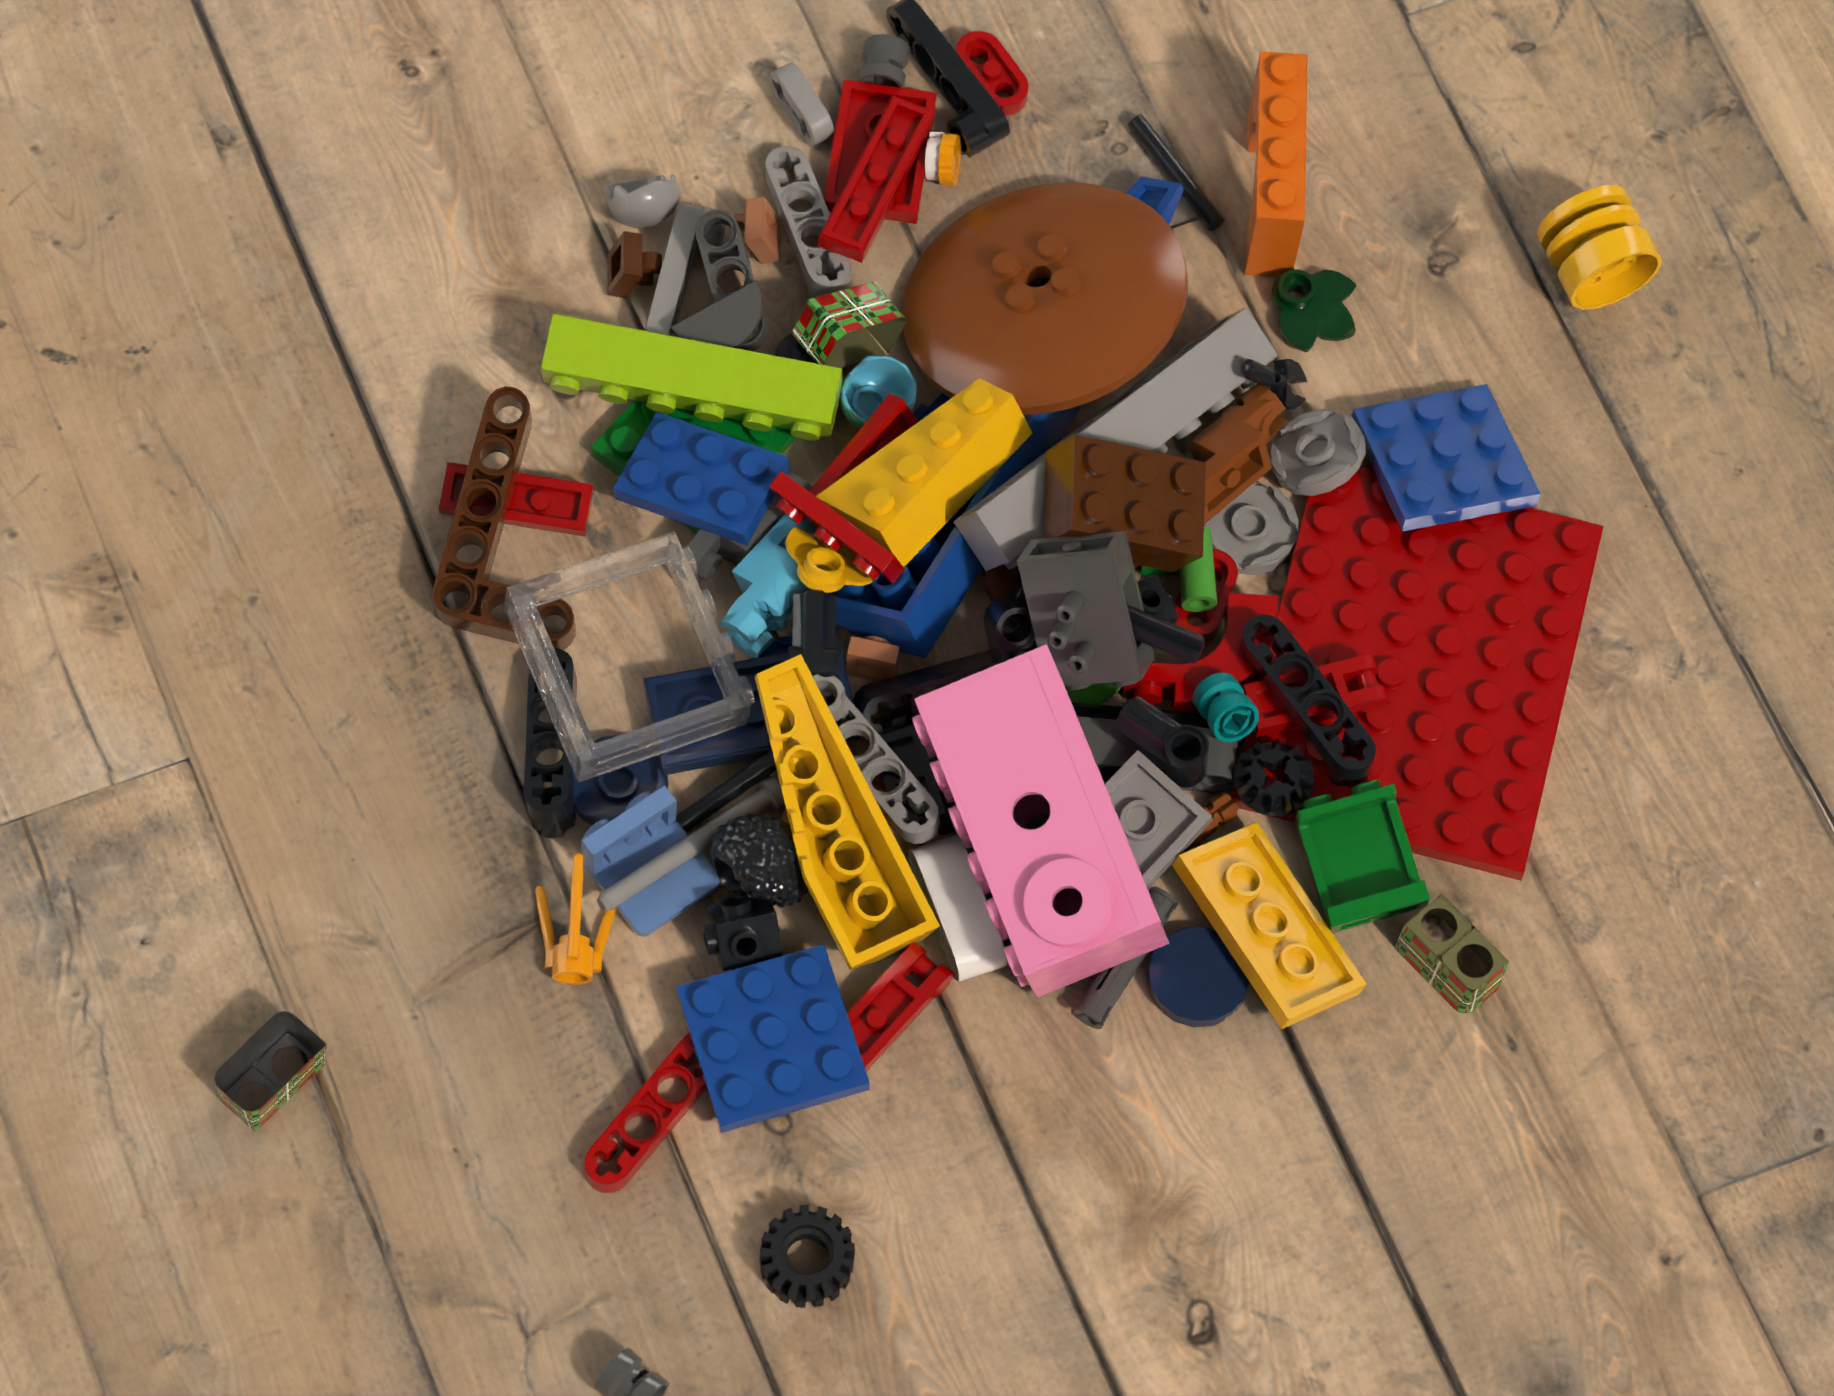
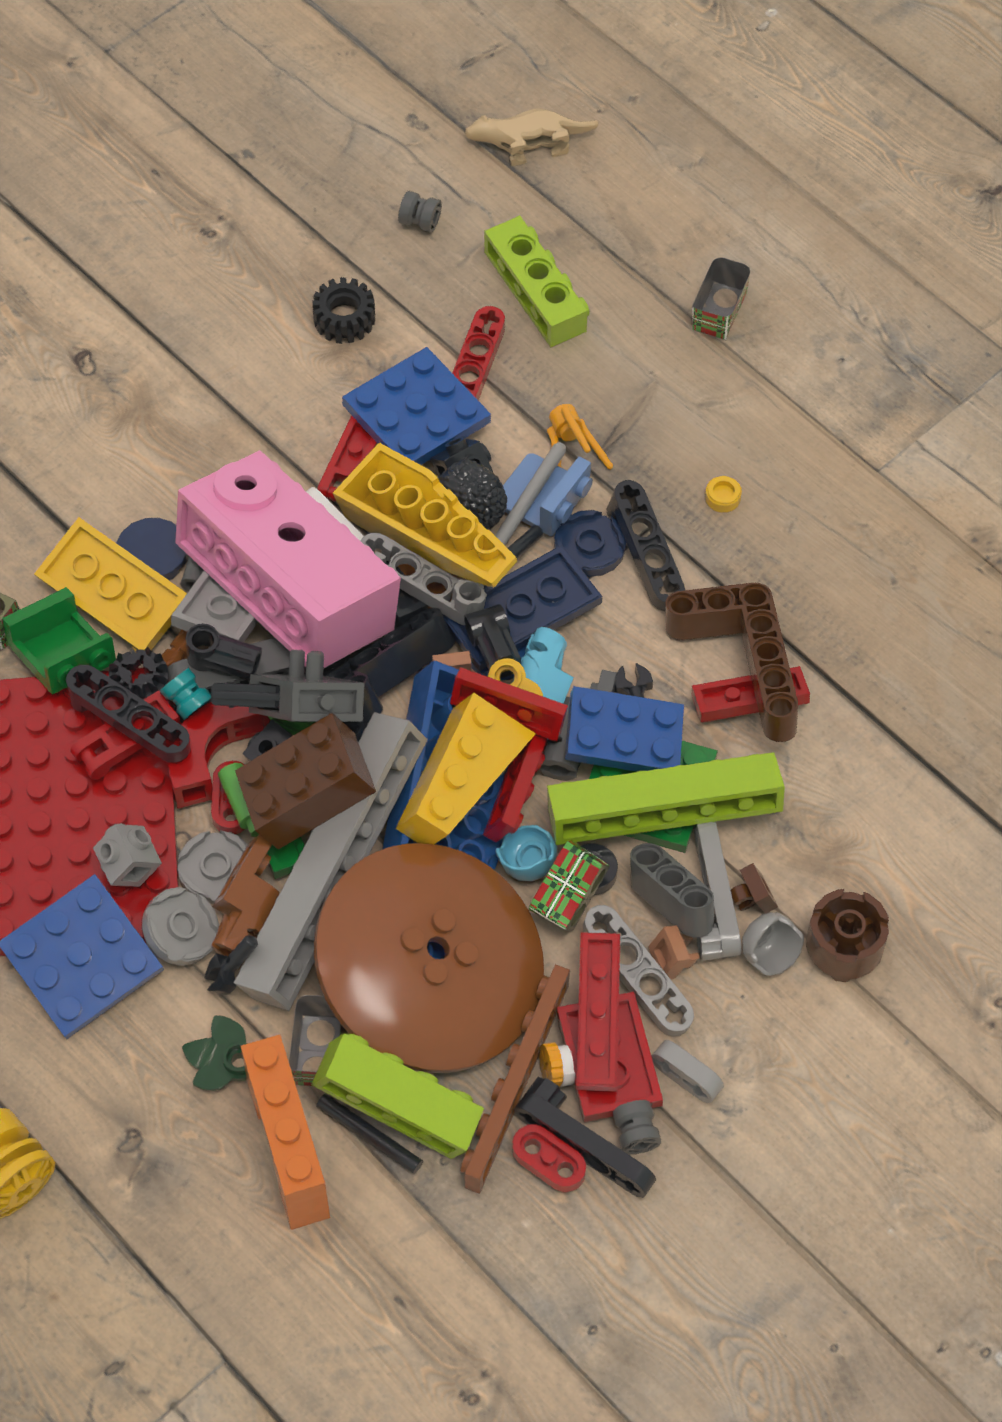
camera: 165 degrees right, 5 degrees down
(410, 791) = (723, 494): none -> yellow tile
(513, 1122) = (536, 281): none -> lime brick
(553, 171) = (847, 934): none -> reddish brown brick
(592, 758) = (612, 508): clear window -> none
(659, 526) = (626, 687): none -> black bar
(727, 321) = (661, 842): dark grey tile -> none
(983, 169) = (509, 1091): none -> dark orange plate
(1140, 154) = (398, 1095): none -> lime brick
(1215, 235) = (315, 1009): none -> flat silver piece
(1360, 528) = (127, 855): none -> light grey brick

